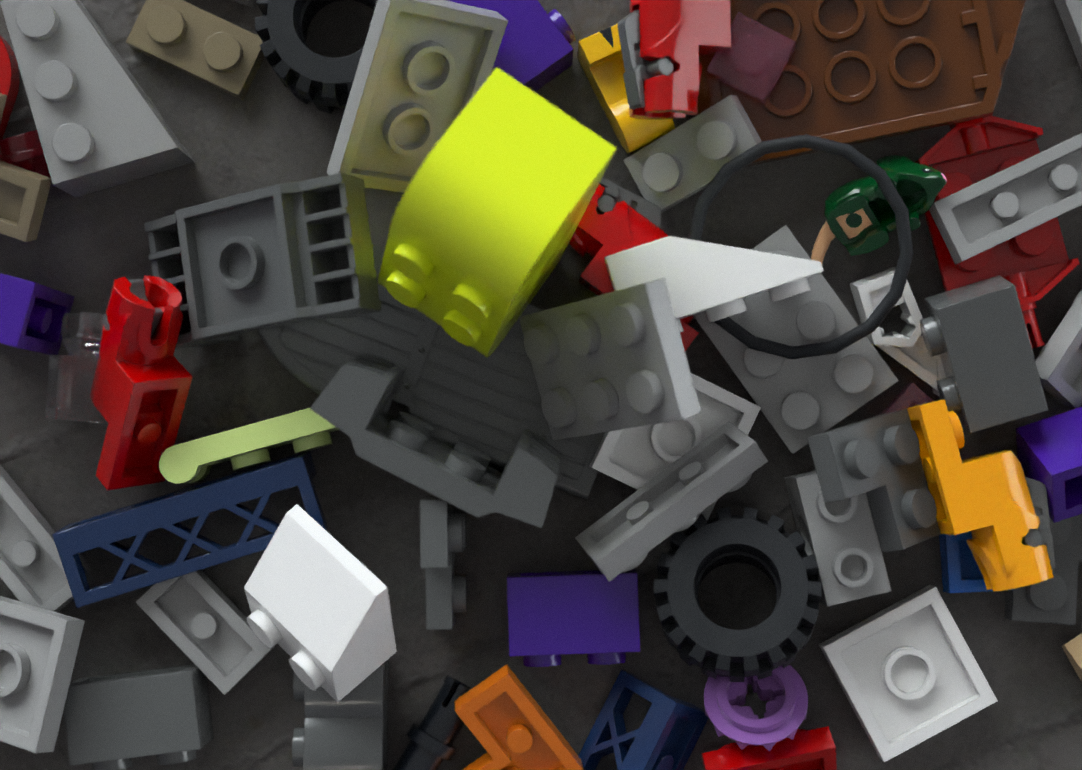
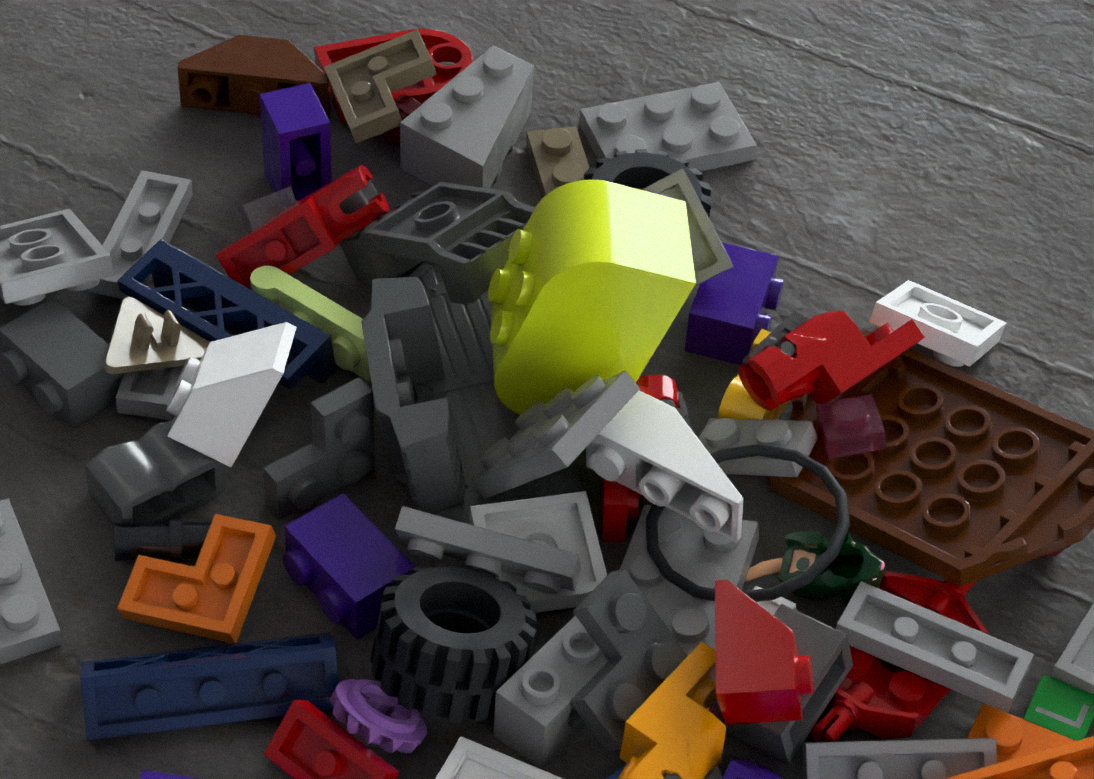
camera: 50 degrees right, 40 degrees down
(185, 625) = (150, 340): none -> dark tan piece
(992, 388) = (756, 662): none -> red slope

